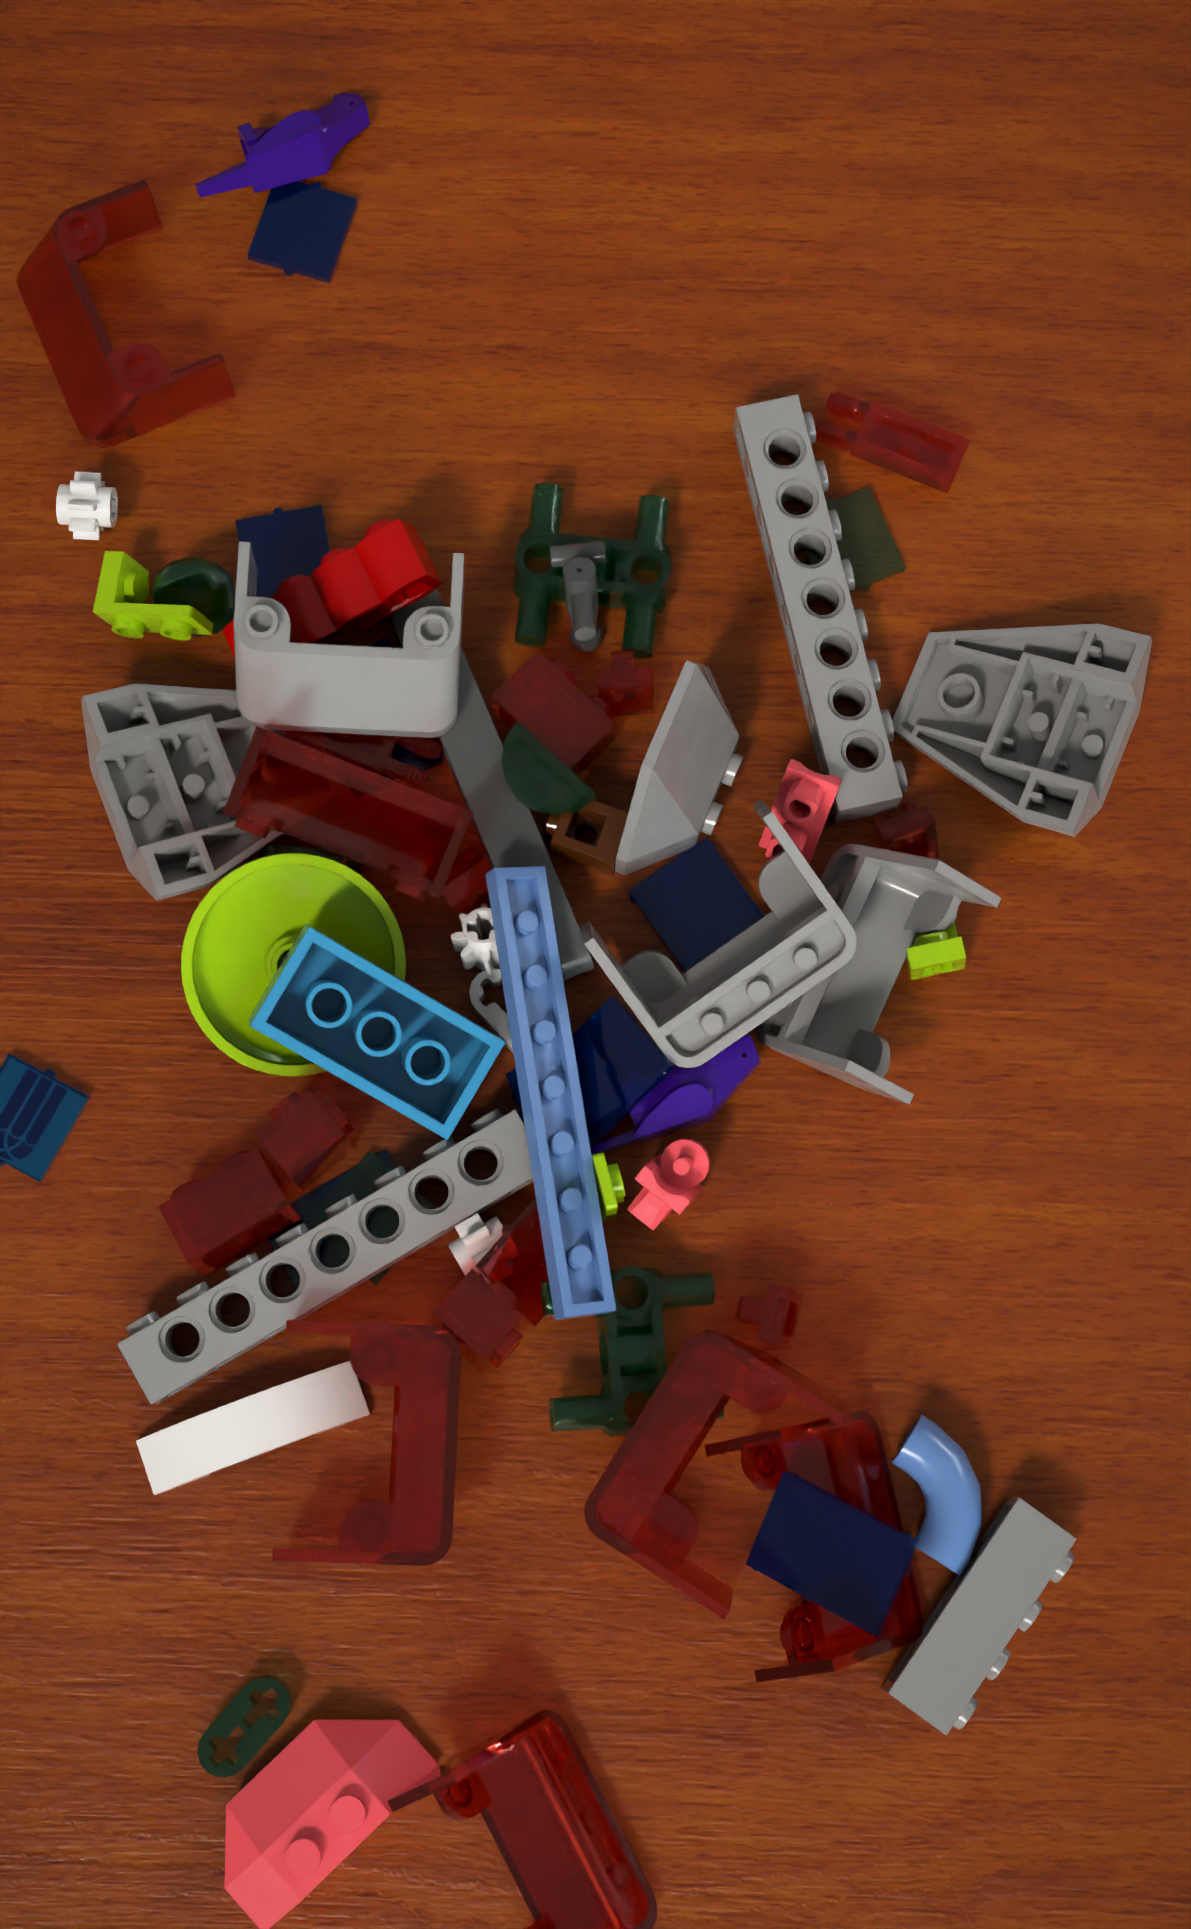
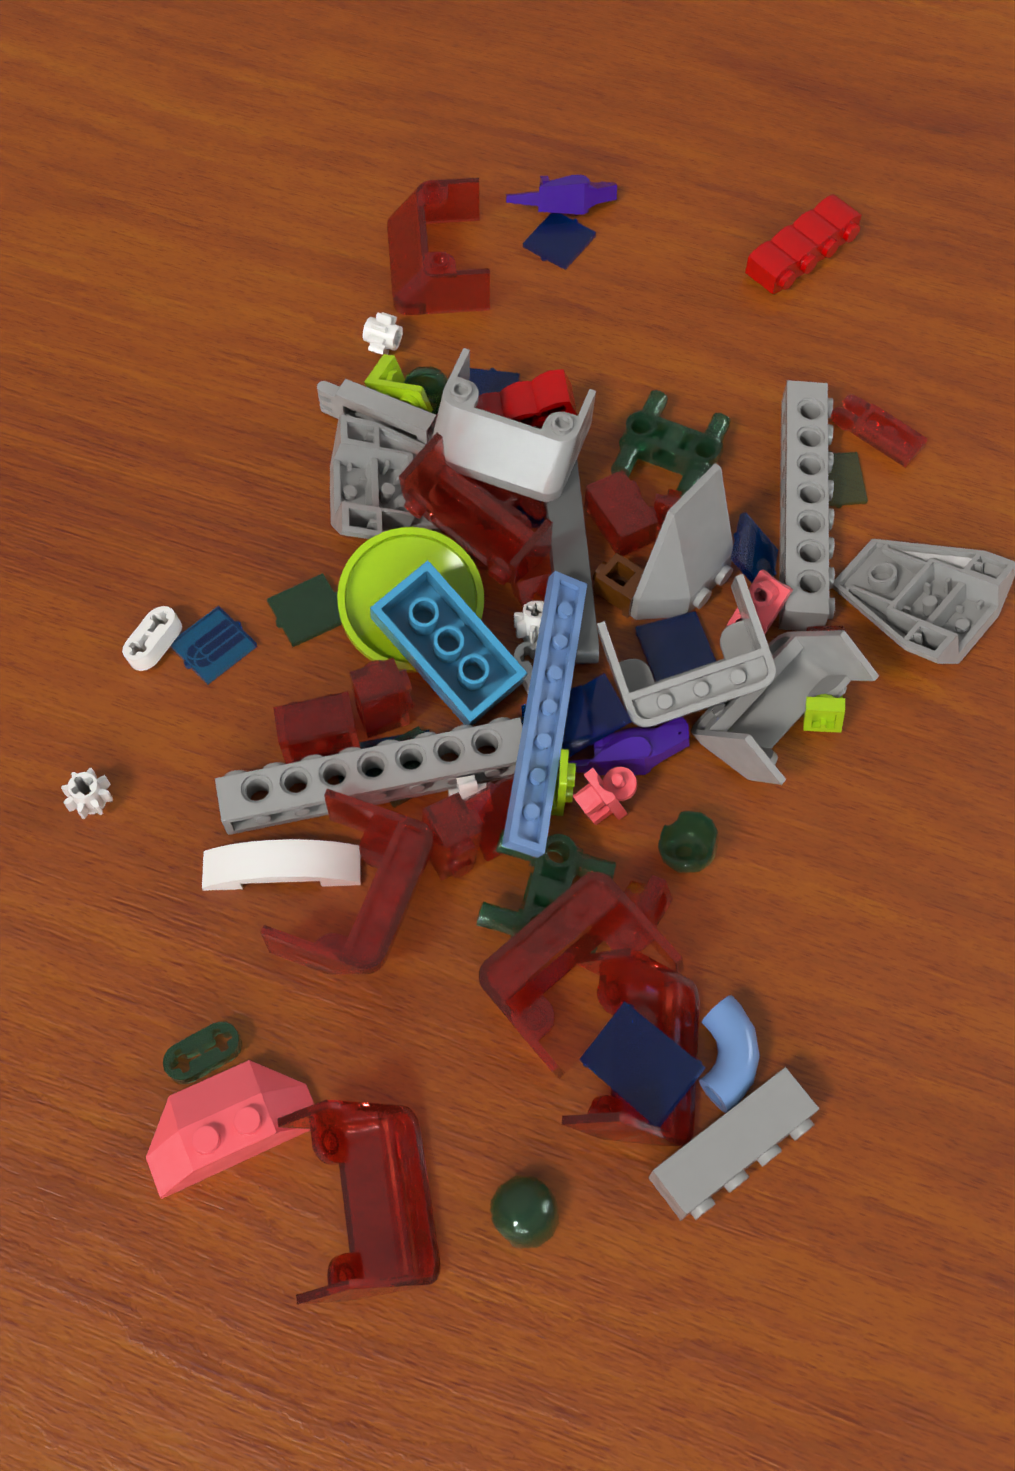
camera: 20 degrees right, 15 degrees down
(132, 657) = (365, 403): none -> light grey hinge
(140, 1016) = (306, 610): none -> clear green piece
(540, 777) = (602, 538): clear green plate -> none
(581, 590) = (659, 450): dark grey piece -> none
(691, 128) = (803, 244): none -> red brick
(738, 1789) = (524, 1211): none -> clear green hair
(767, 723) = (753, 549): none -> clear blue piece
(802, 1214) = (689, 842): none -> clear green hair

